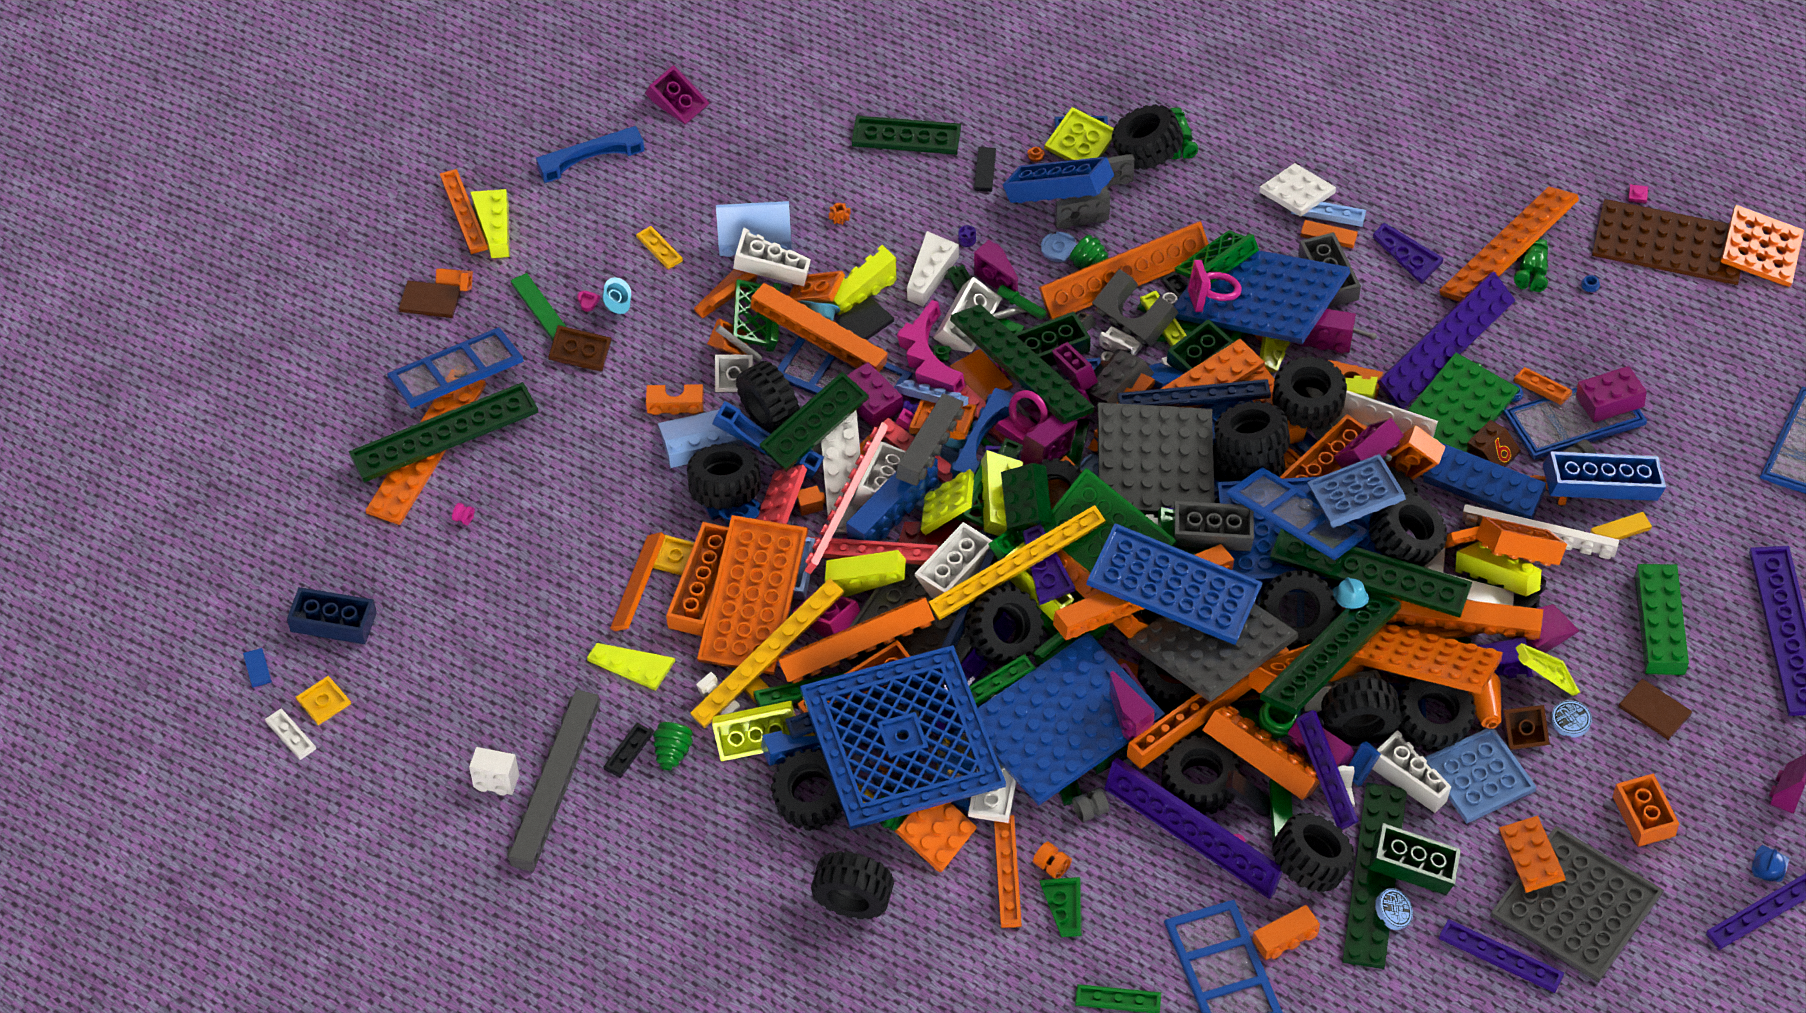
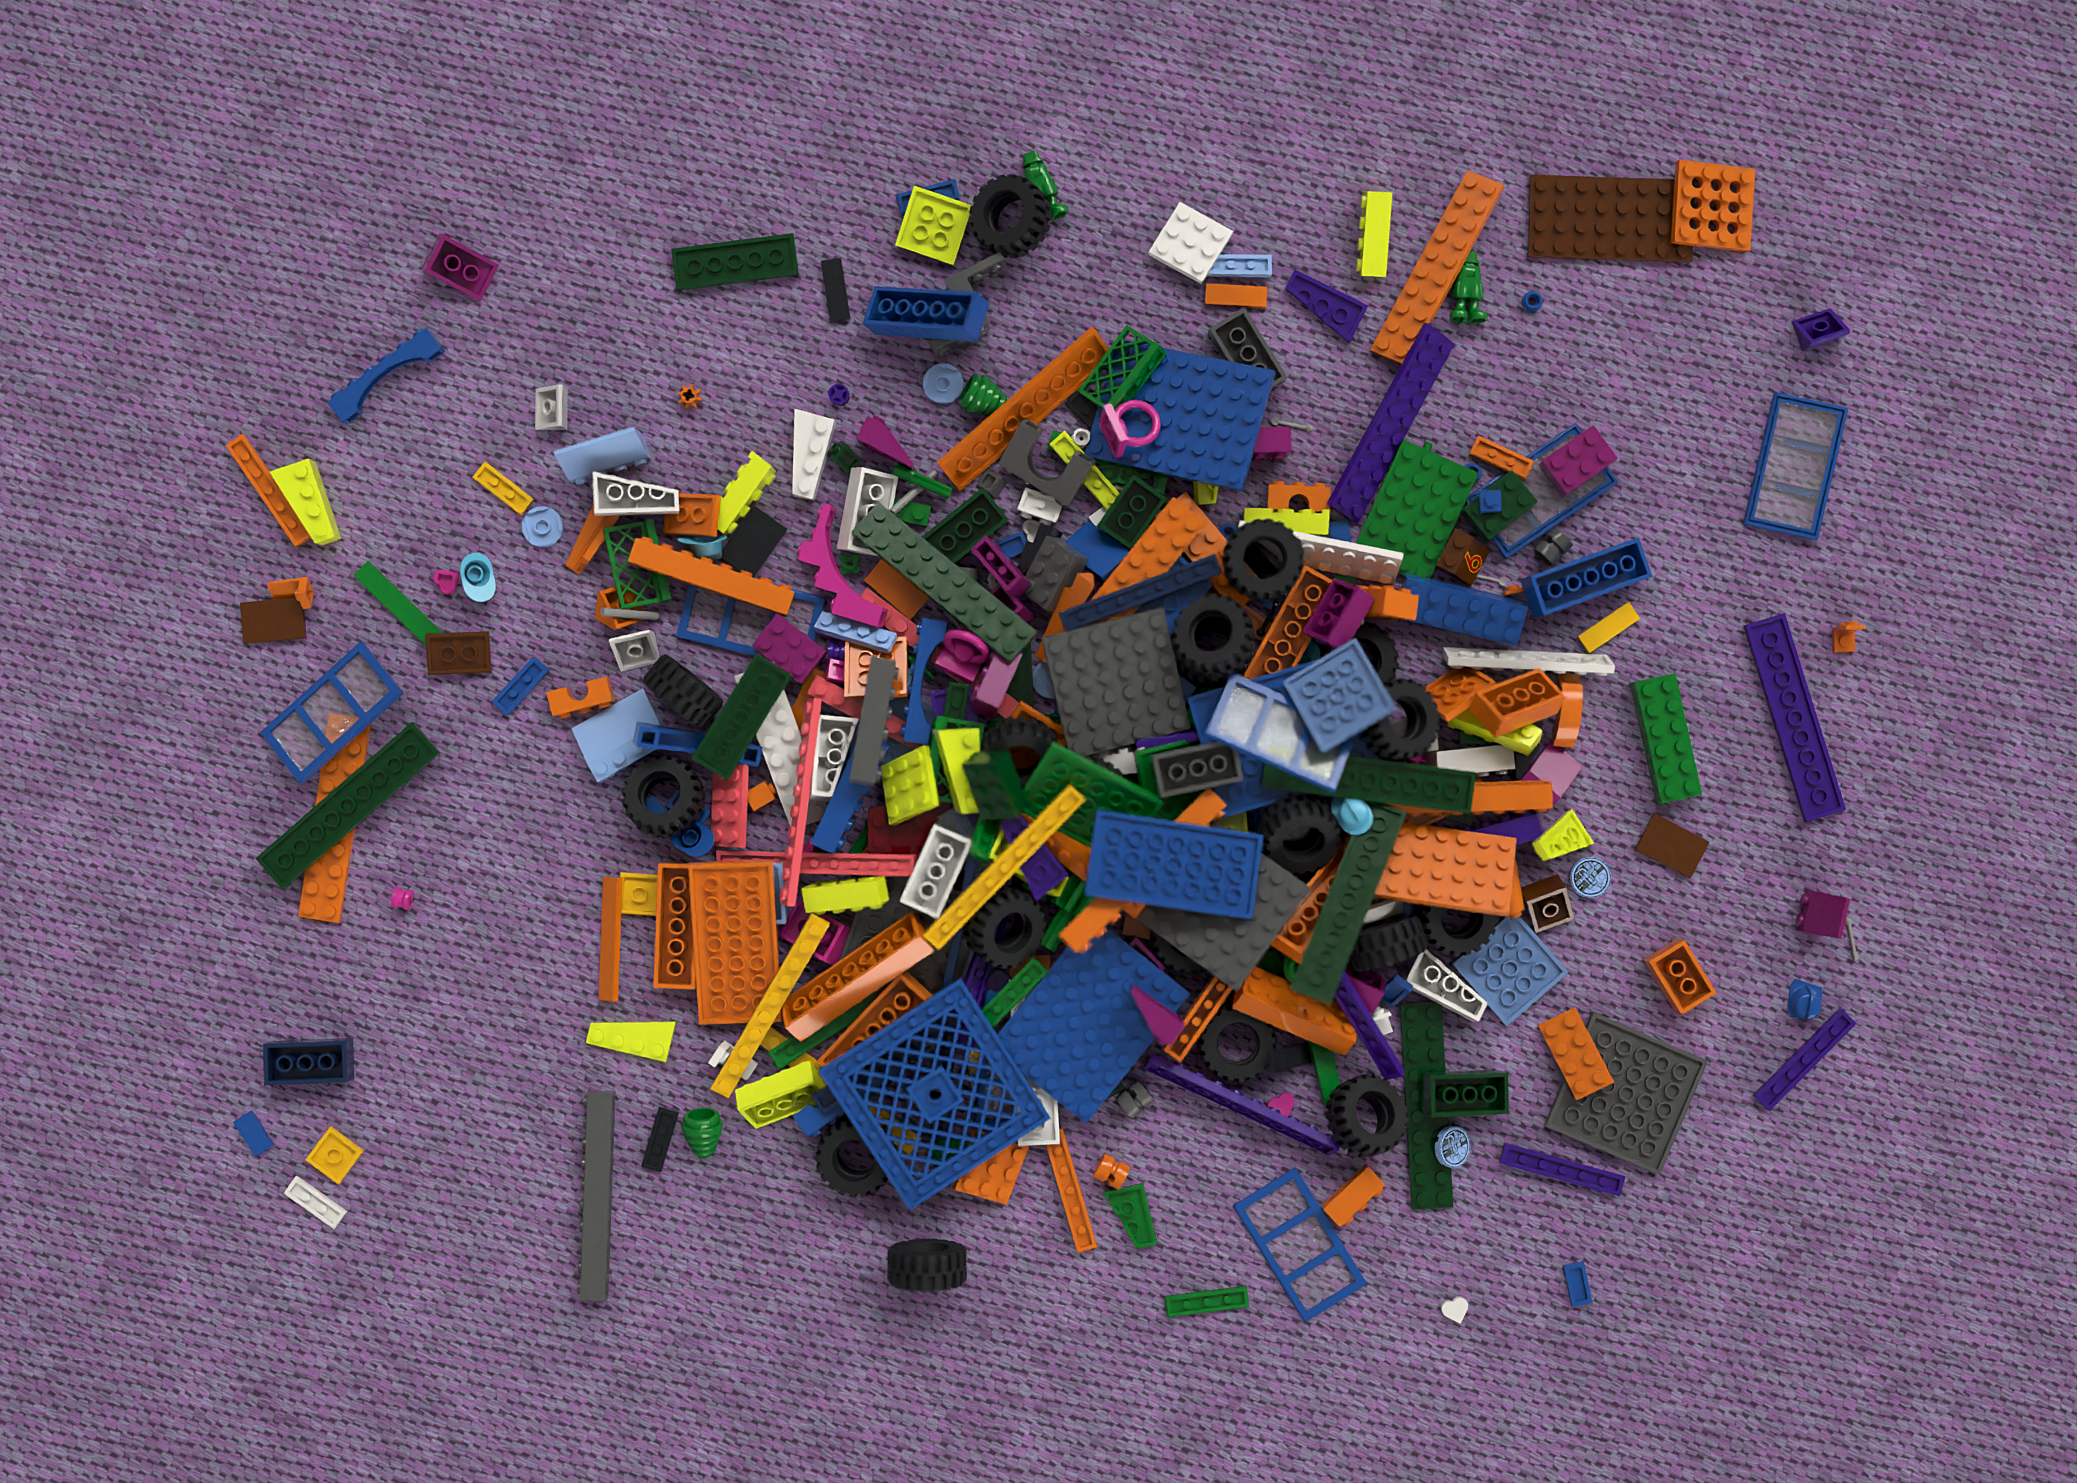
camera: 15 degrees left, 35 degrees up
(494, 771) = (534, 1208): white brick -> none
(624, 382) = (520, 685): none -> blue plate
(683, 279) = (542, 526): none -> light blue tile
(719, 195) = (551, 408): none -> white slope
(1035, 154) = (892, 255): orange plate -> none
(1459, 208) = (1374, 233): none -> neon yellow wedge
(1524, 397) = (1490, 501): none -> blue plate
(1533, 413) = (1515, 502): none -> dark green brick
(1569, 579) = (1569, 716): none -> orange arch
(1638, 194) = (1566, 156): dark pink plate -> none

